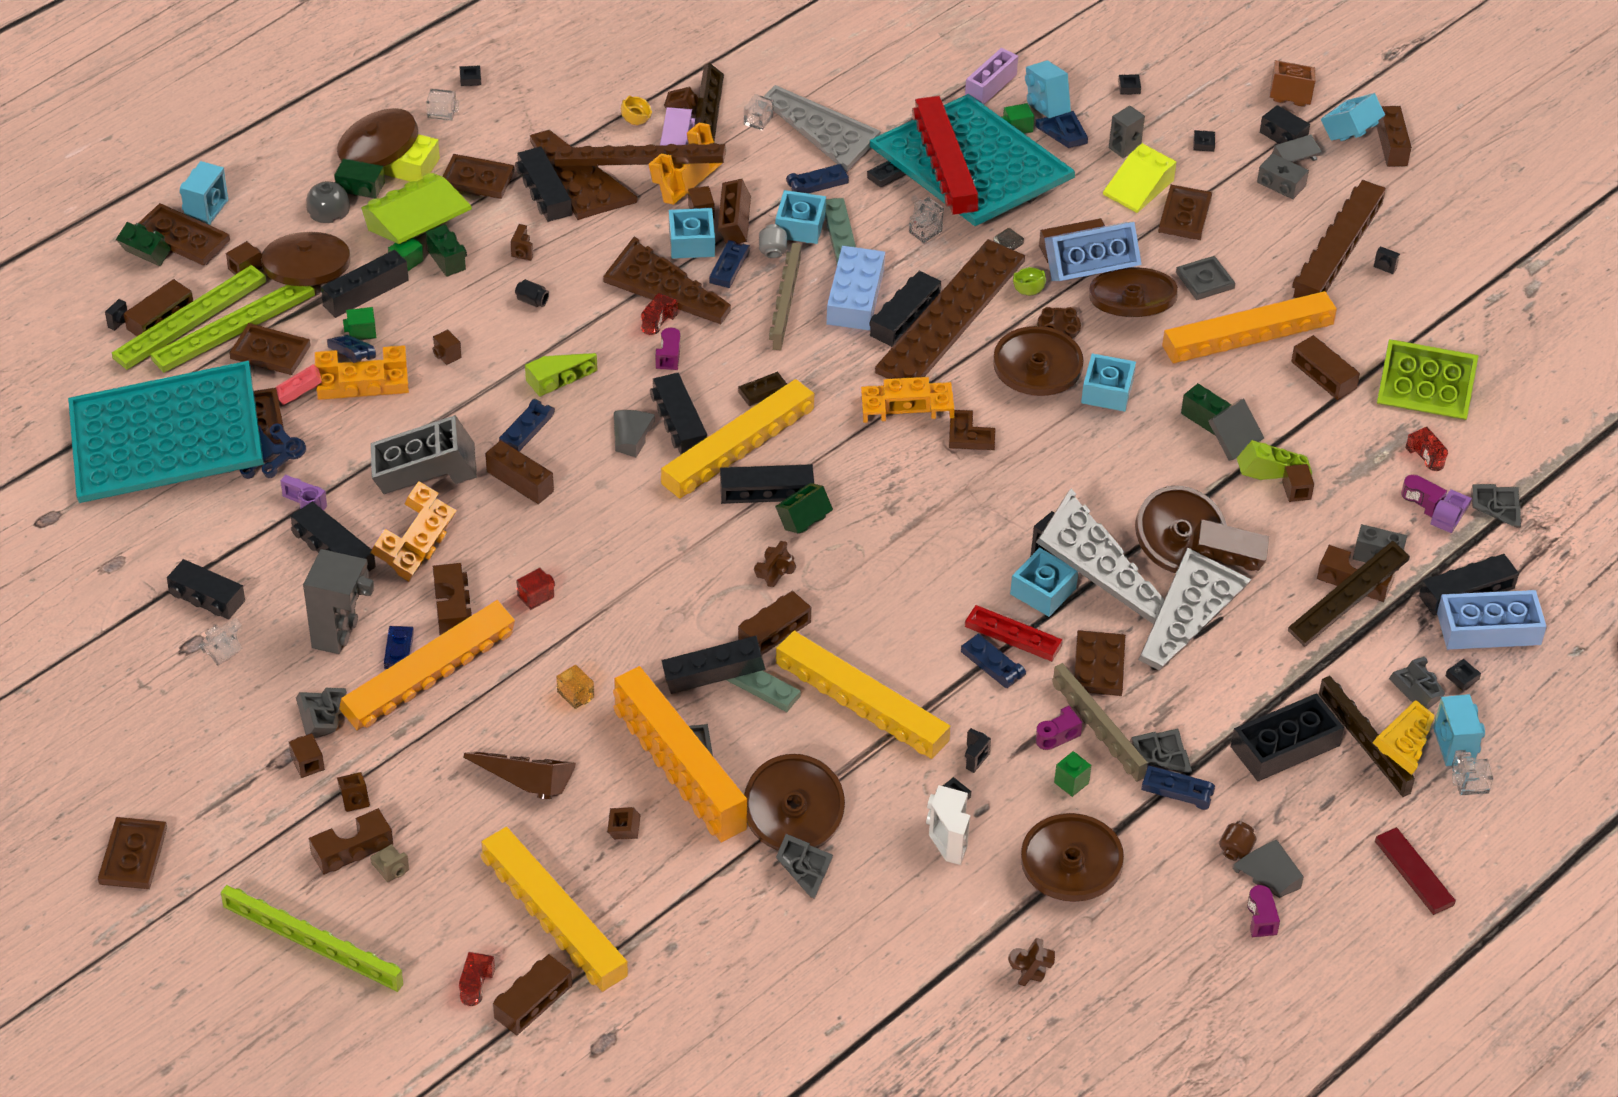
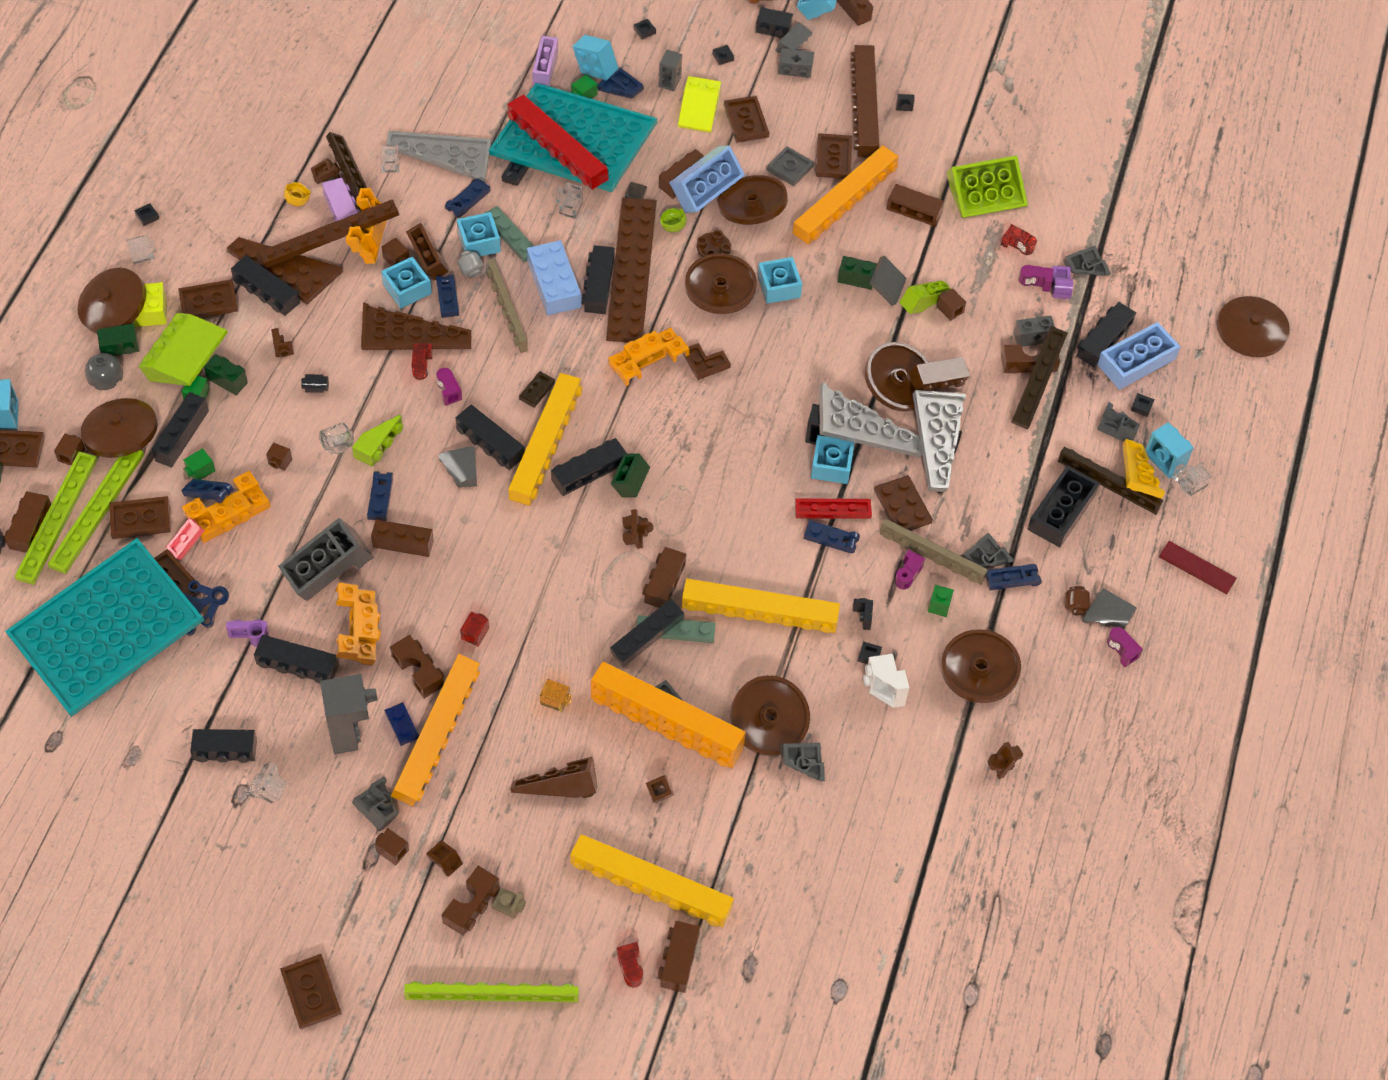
camera: 30 degrees left, 10 degrees up
(515, 352) = (336, 438): none -> clear hair
(1262, 283) = (833, 156): none -> reddish brown plate

